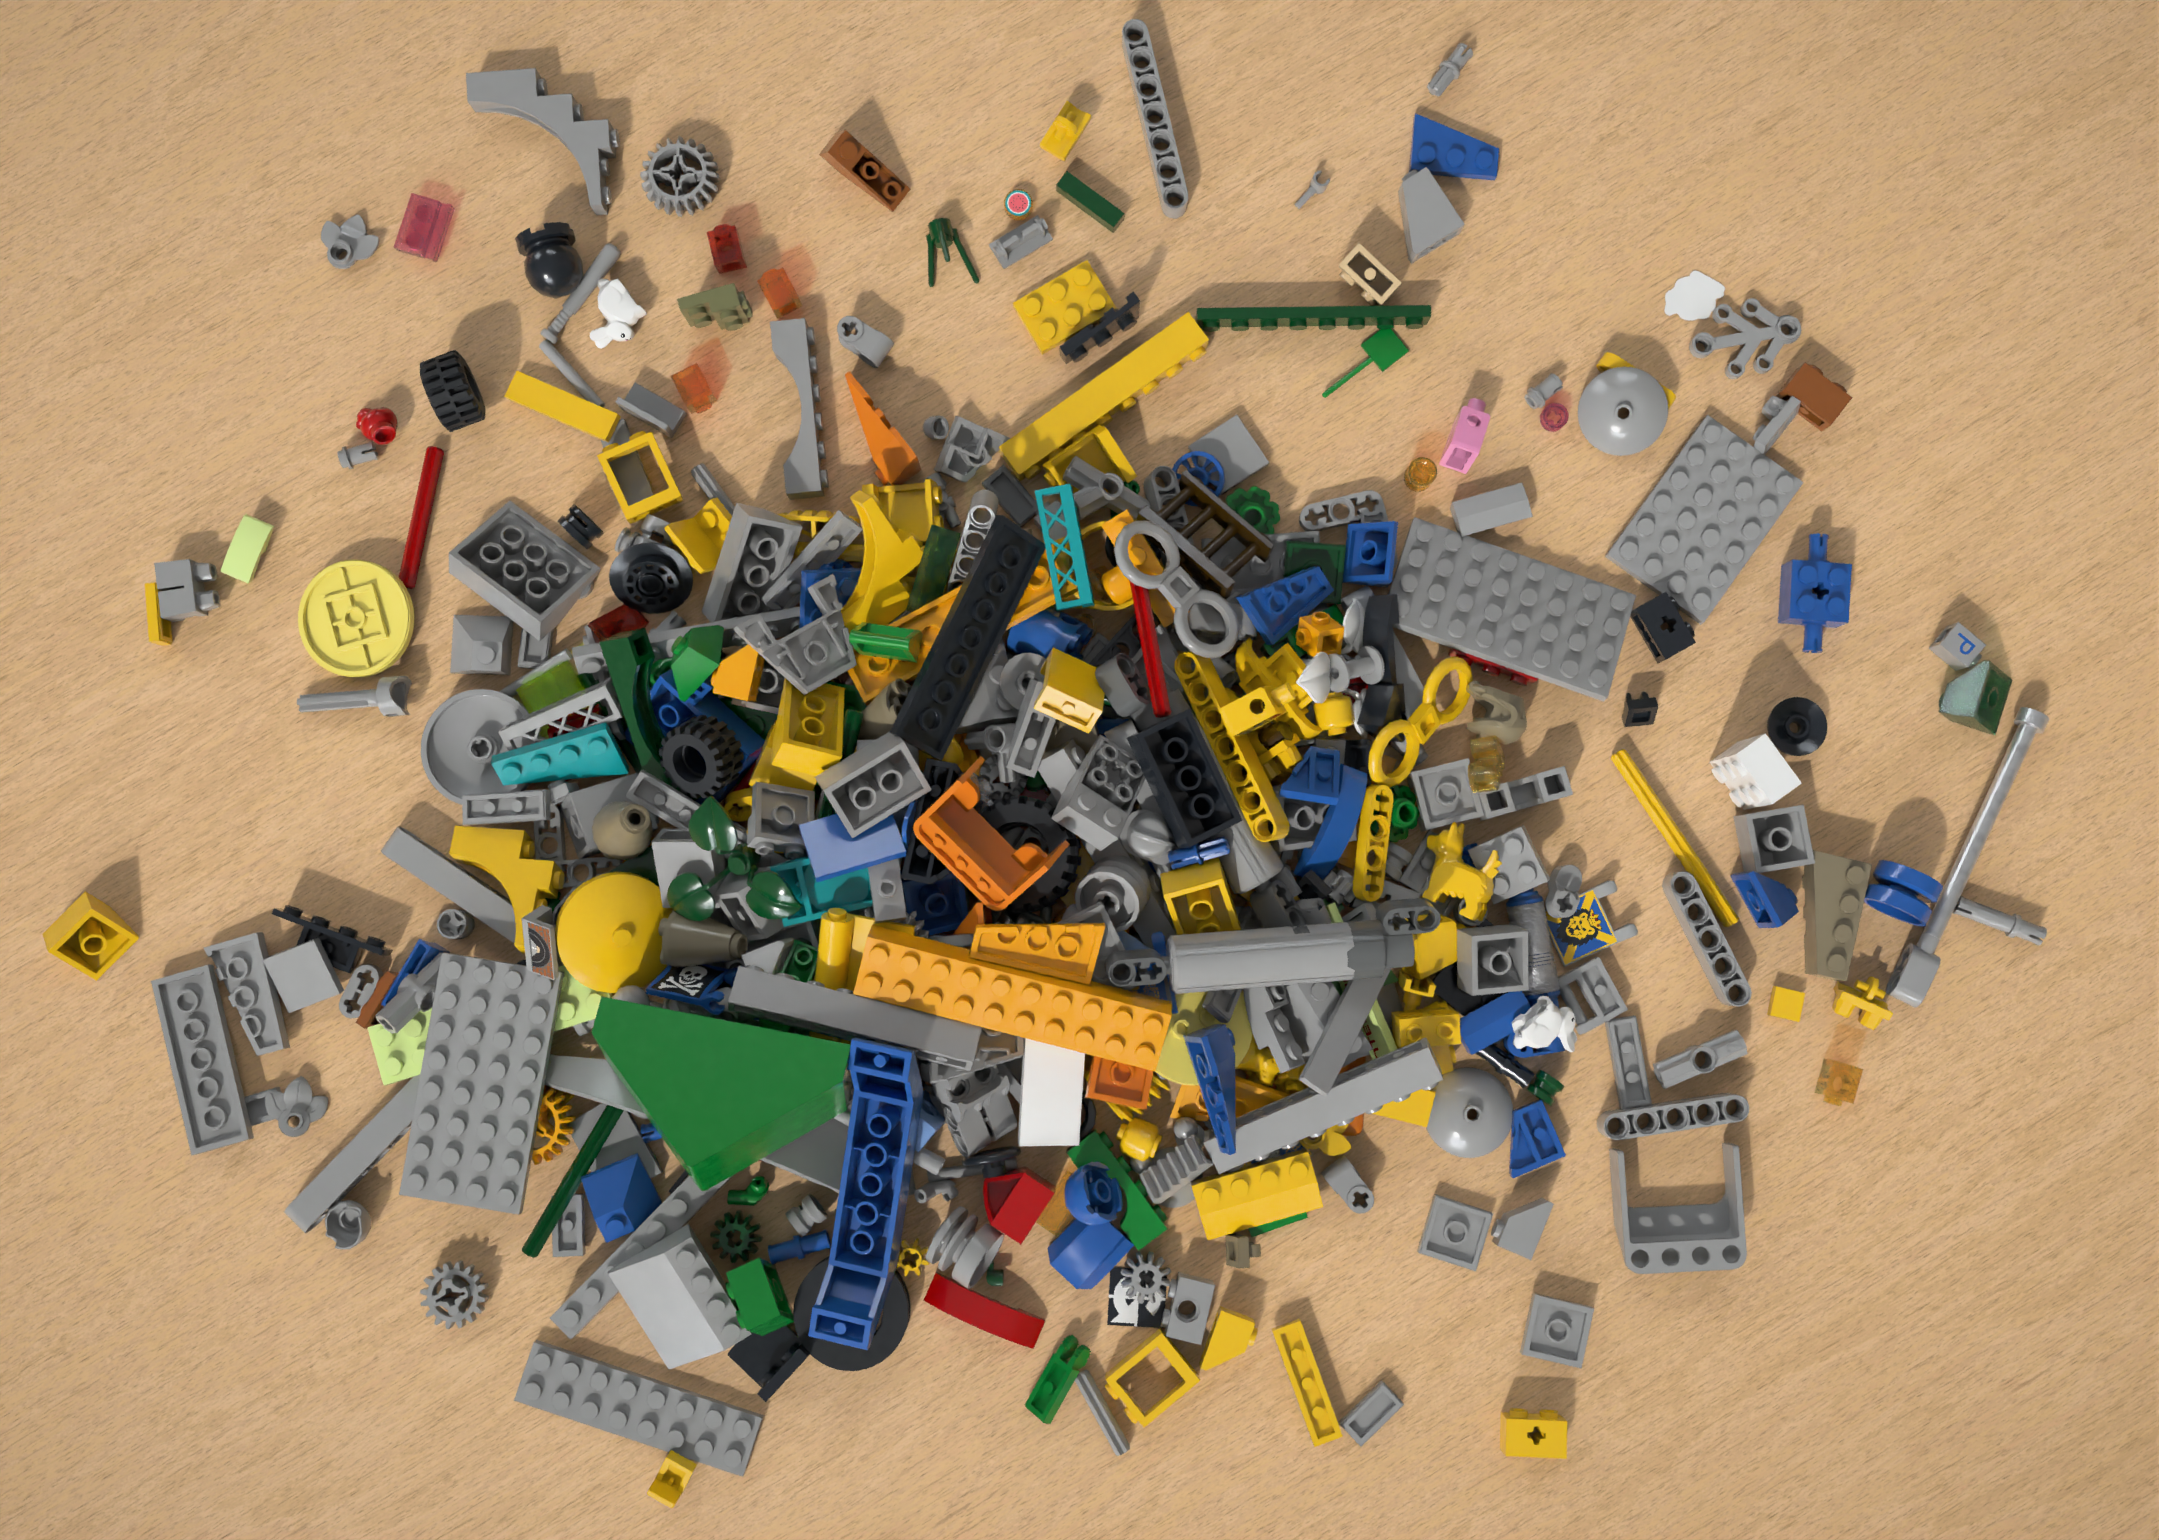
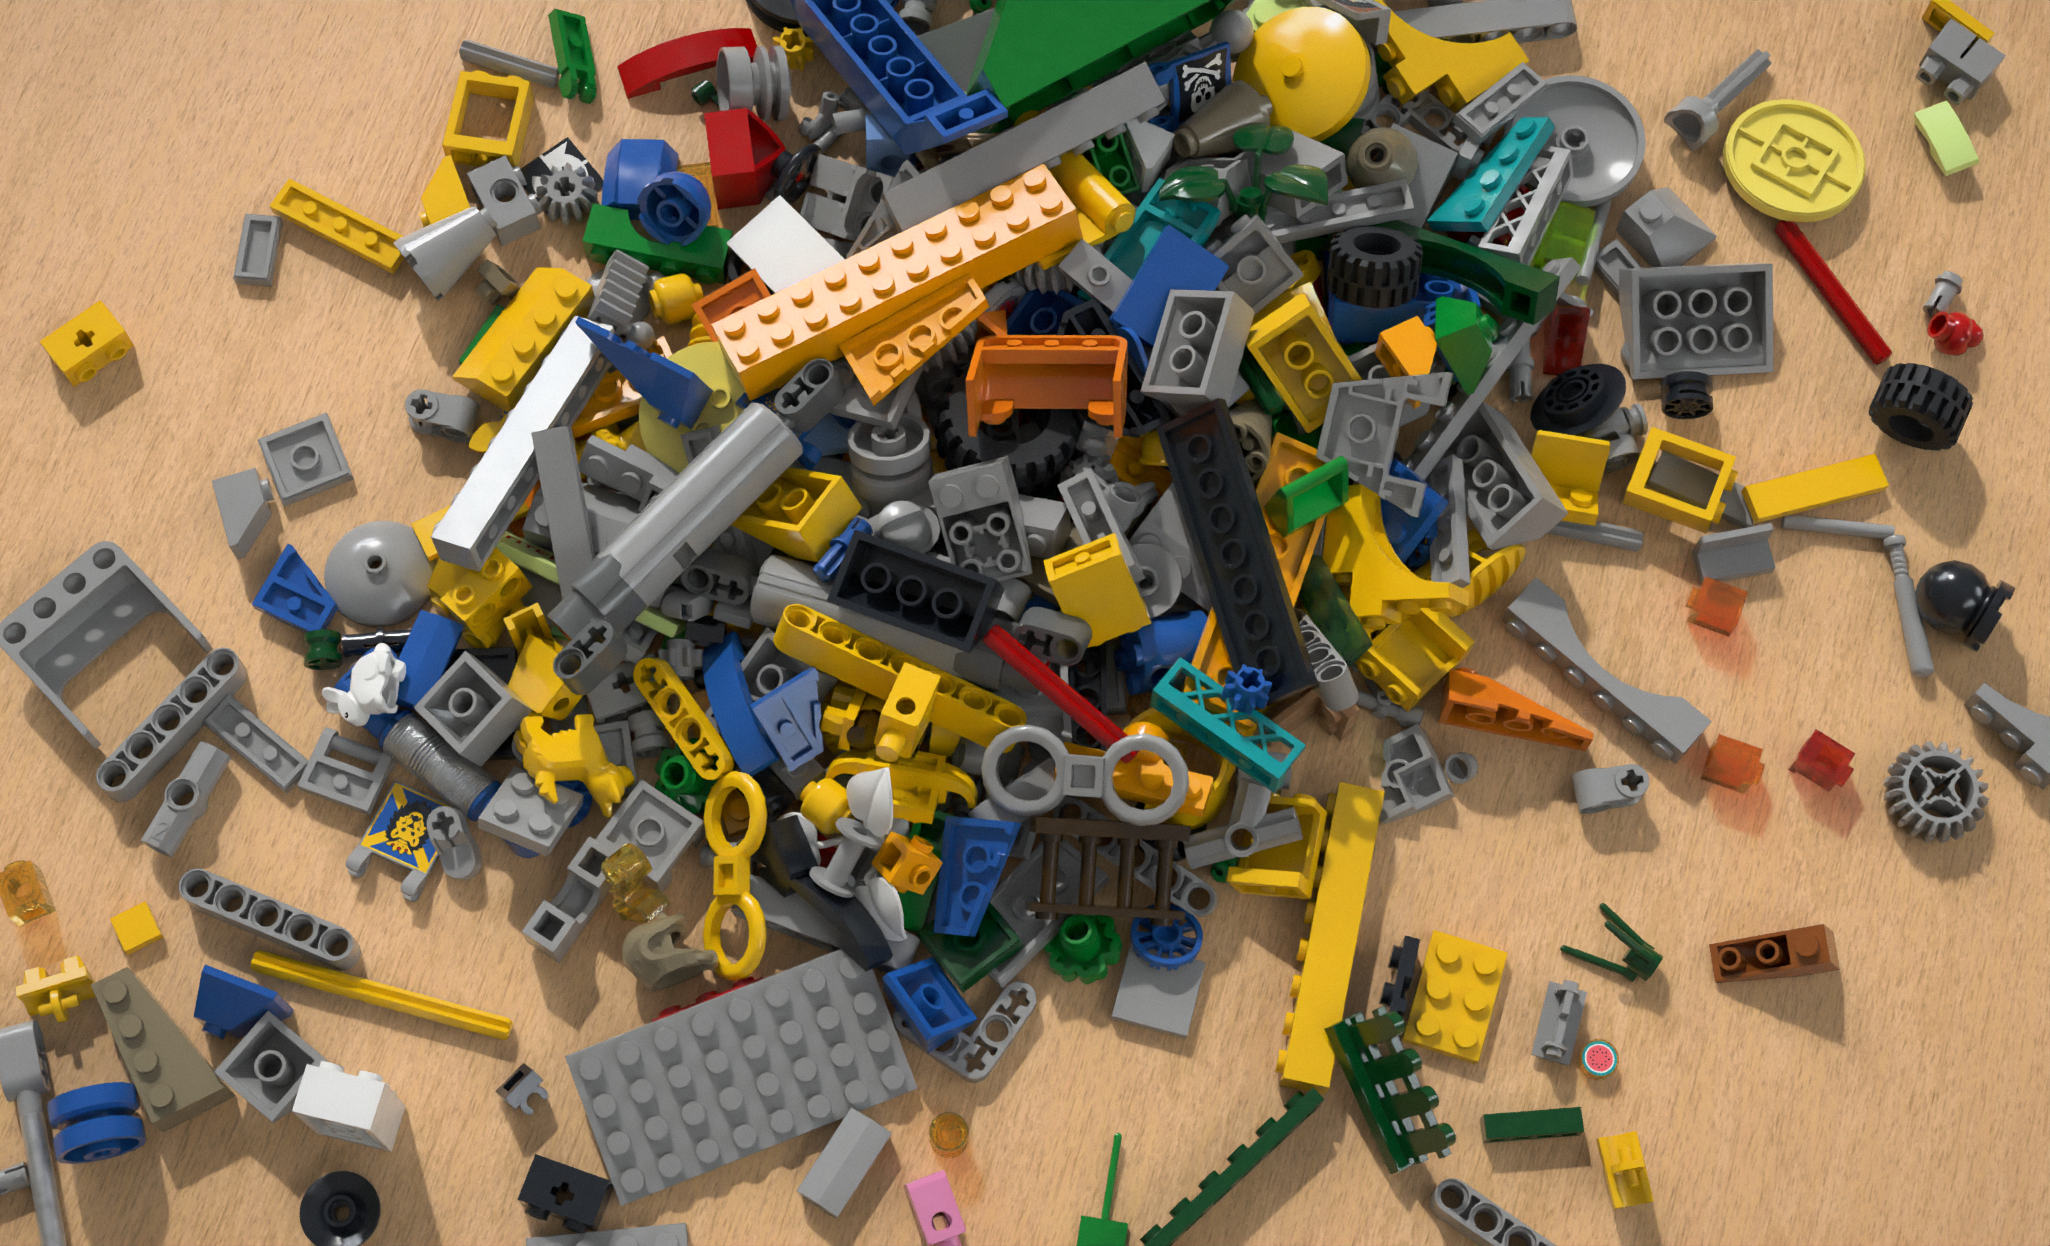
camera: 135 degrees right, 15 degrees down
(619, 311) = (1858, 620): white animal -> none
(720, 304) = (1765, 694): olive plate -> none
(1011, 496) = (1328, 767): dark grey tile -> none
(1035, 543) = (1246, 689): none -> blue gear
(1158, 278) = (1377, 1096): none -> dark green fence
(1259, 1298) = (447, 248): none -> light grey cone
(1557, 1330) = (135, 449): light grey plate -> none

